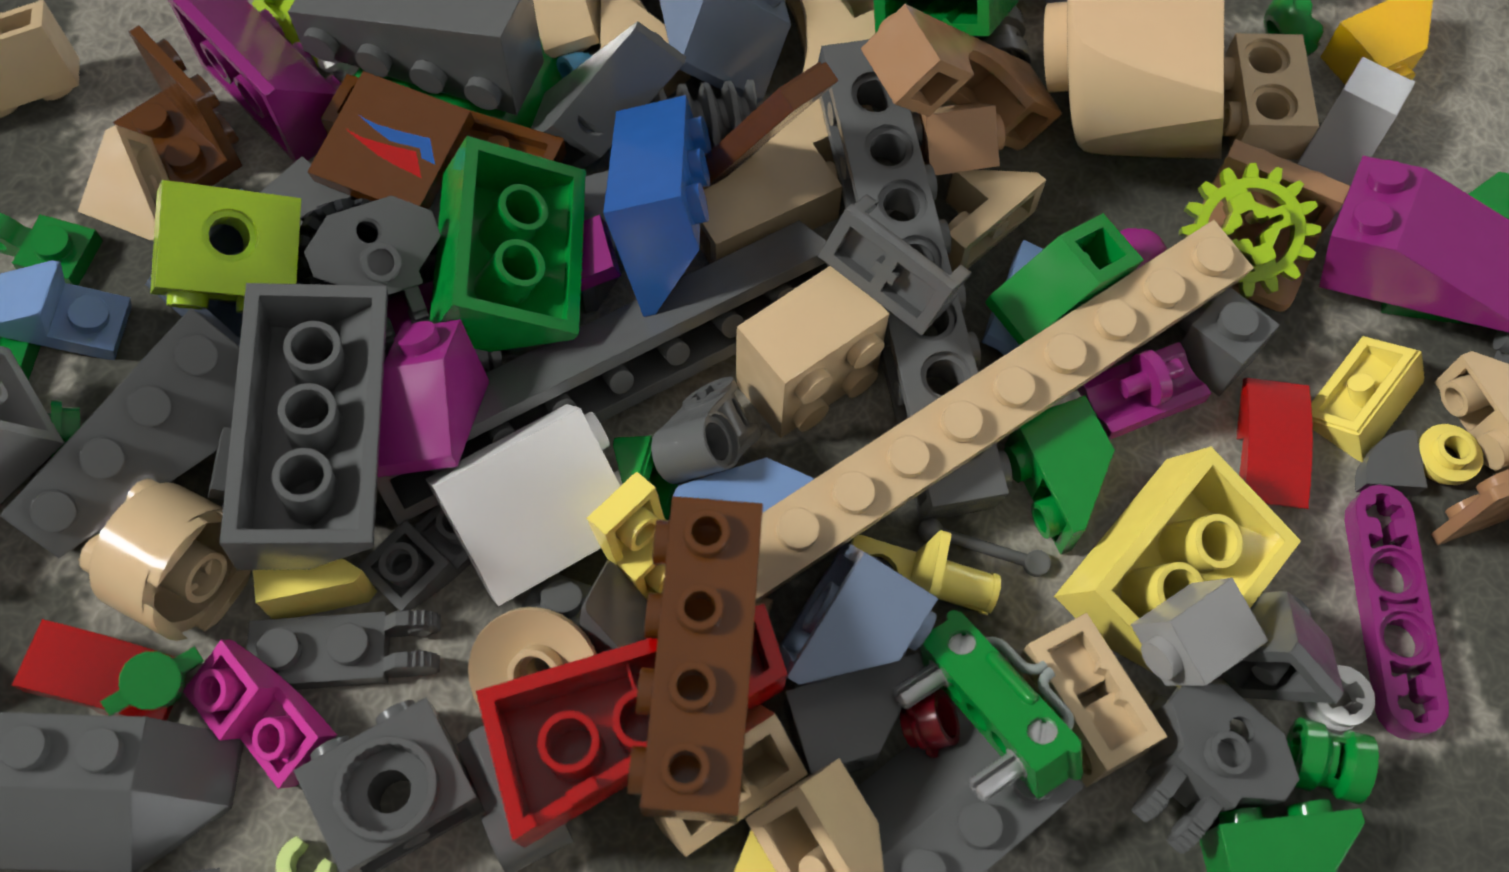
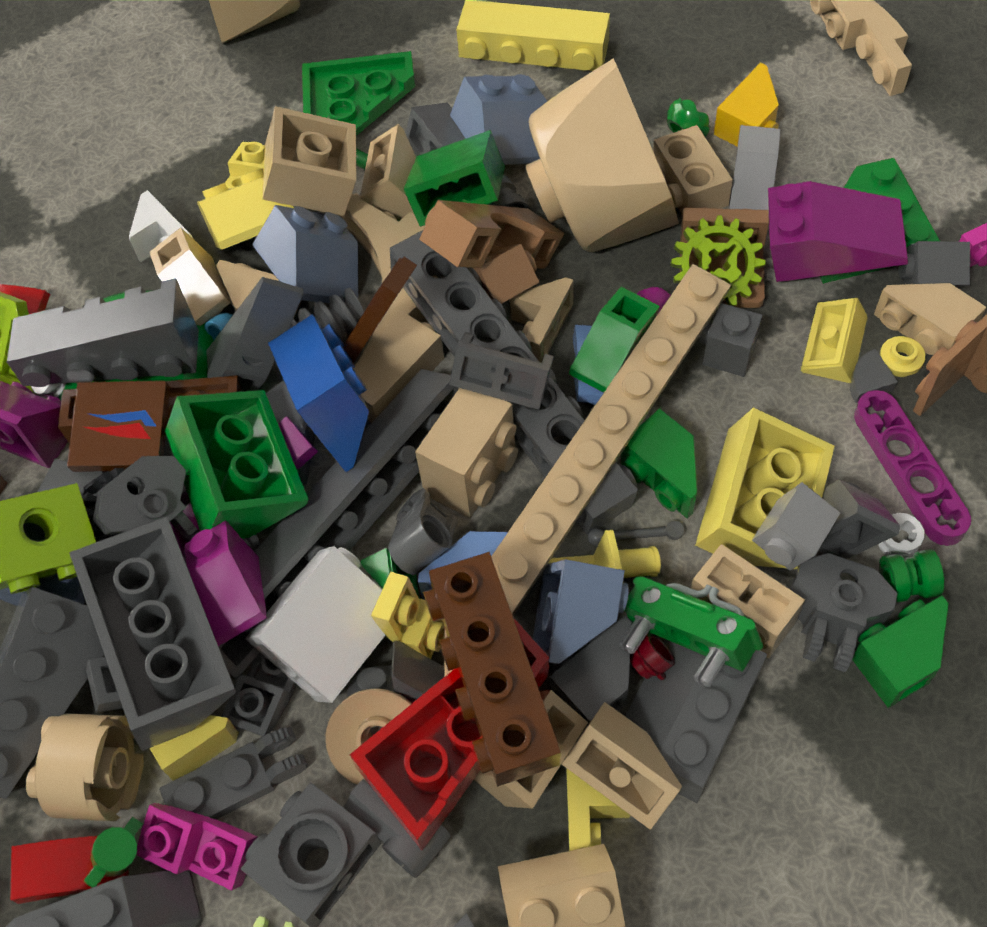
camera: 15 degrees left, 5 degrees down
(1144, 390) = (695, 390): magenta hips -> none
(1276, 441) = (792, 389): red slope -> none

